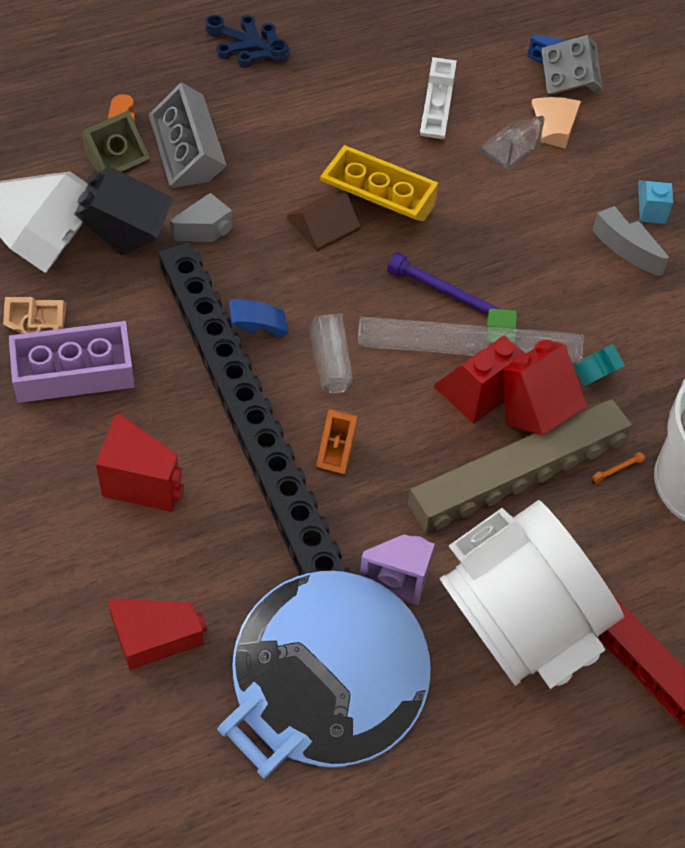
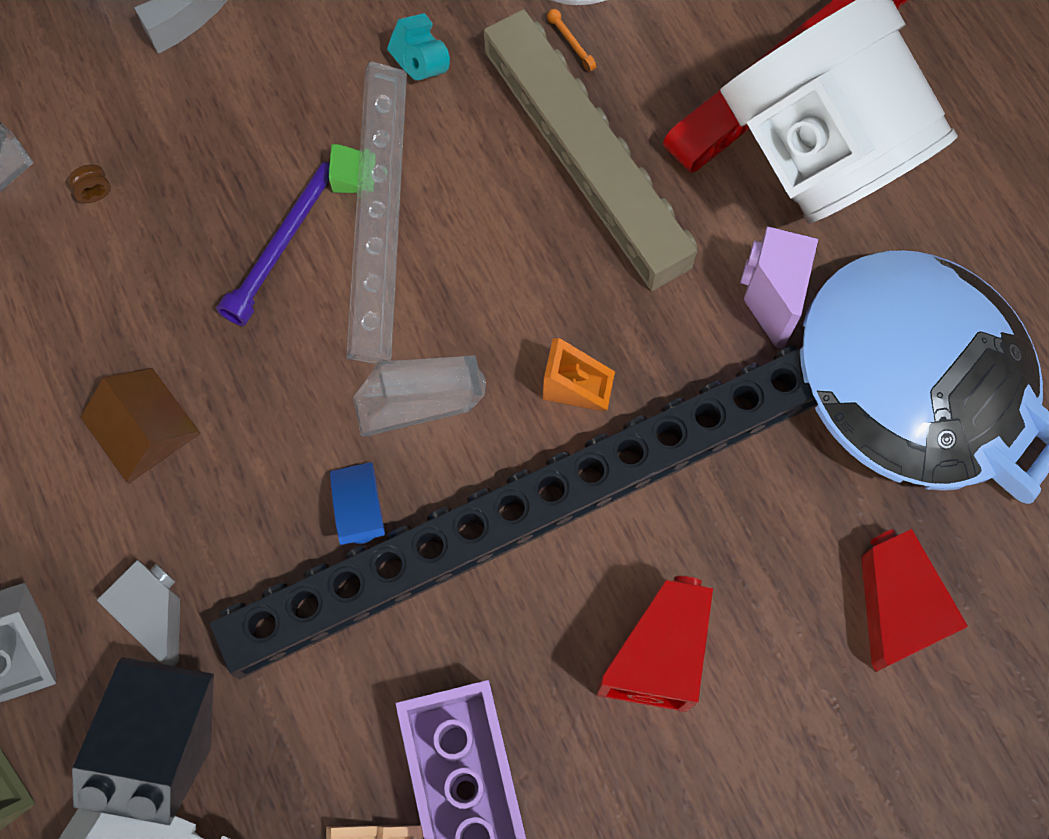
camera: 90 degrees left, 15 degrees up
(381, 183) = (83, 330): yellow slope -> none
(478, 383) = (457, 185): red slope -> none
(487, 192) = (89, 183): none -> reddish brown bush
(541, 388) = (494, 100): red slope -> none

